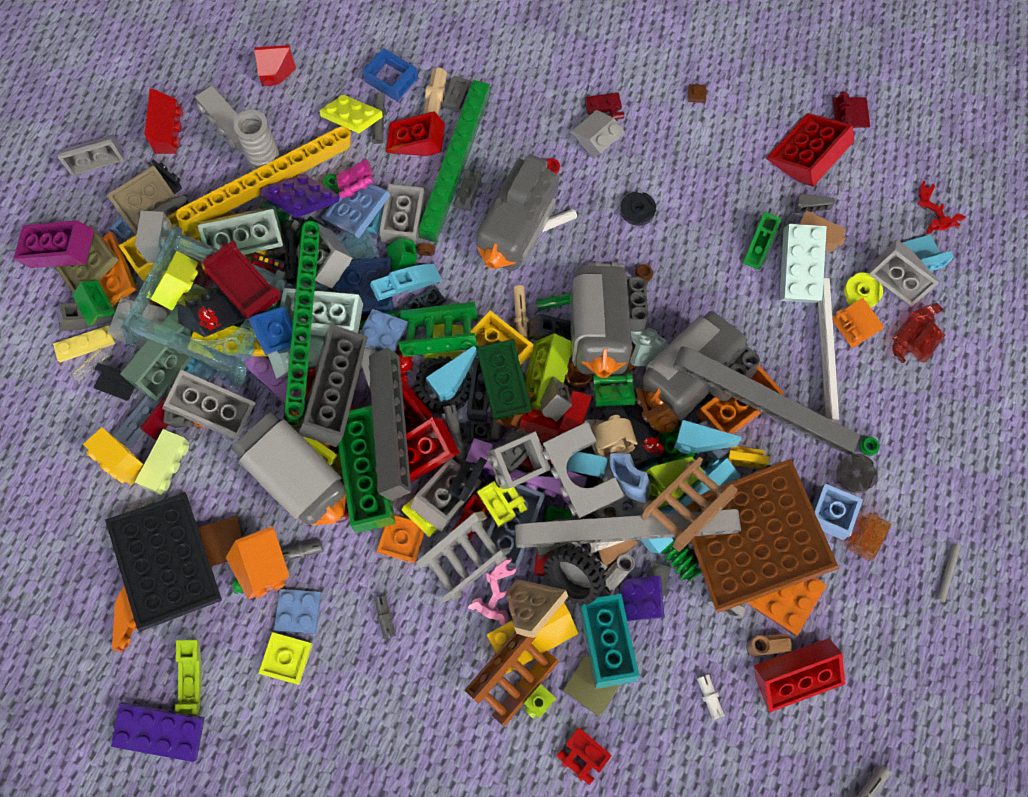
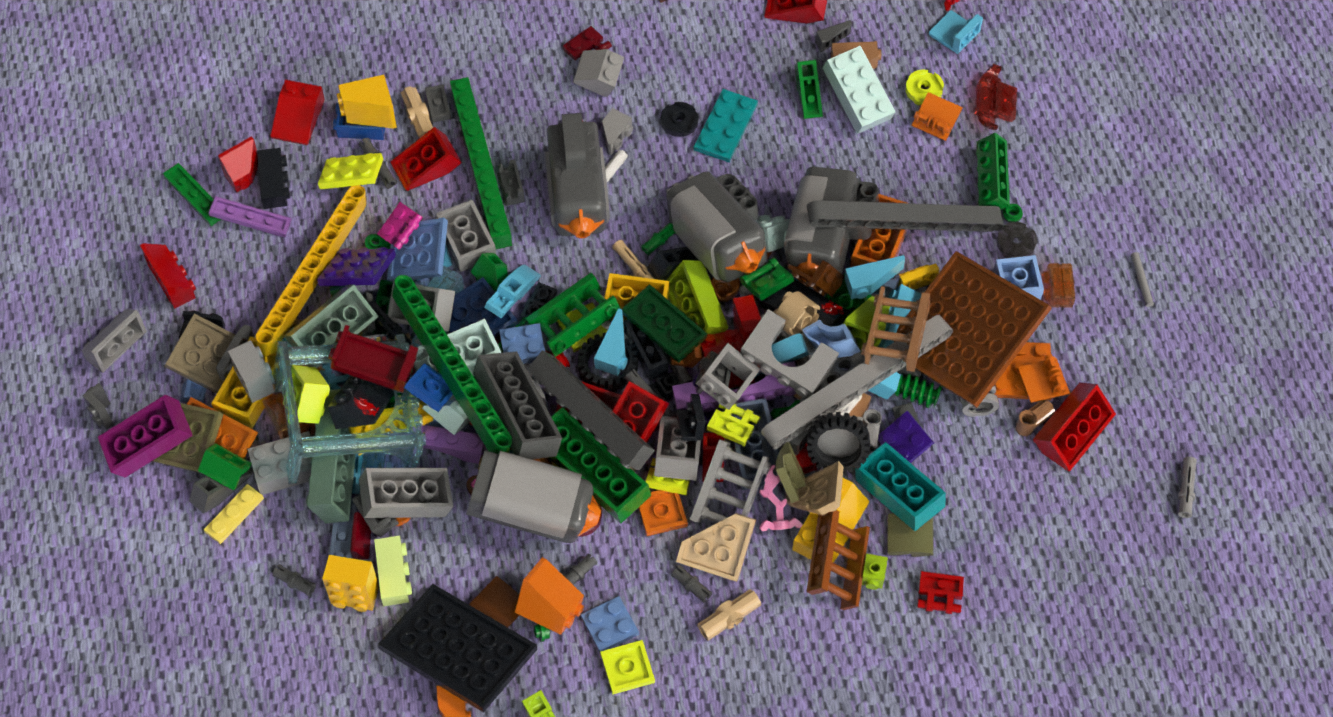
camera: 30 degrees left, 10 degrees down
(40, 199) = (96, 404): none -> dark grey bracket
(87, 424) = (294, 580): none -> dark grey pin
(89, 365) = (252, 540): clear pin -> none
(112, 382) = (291, 529): black panel -> none
(220, 114) = (225, 239): light grey brick -> none
(228, 70) = (191, 192): none -> green plate
(247, 101) = (250, 216): none -> medium lavender tile
(255, 138) = (288, 236): light grey piece -> none
(292, 88) = (273, 178): none -> black brick
(346, 44) = (297, 112): none -> red slope
(394, 63) = (367, 102): none -> yellow slope
(395, 664) = (729, 614): none -> tan piece
(423, 601) = (719, 547): none -> tan plate
(426, 249) = (508, 255): reddish brown tile -> none
(518, 574) = (790, 472): none -> olive slope
(555, 400) = (723, 314): dark grey slope -> none
(580, 189) = (615, 128): none -> light grey slope
(644, 271) = (720, 169): reddish brown plate -> none
(673, 234) = (726, 125): none -> teal plate
(710, 697) = (1013, 486): white pin -> none
(798, 617) = (1043, 379): none -> orange hinge
(828, 354) = (928, 154): white tile -> none
(874, 400) = (993, 171): none -> green brick
(903, 273) = (949, 53): light grey slope -> none

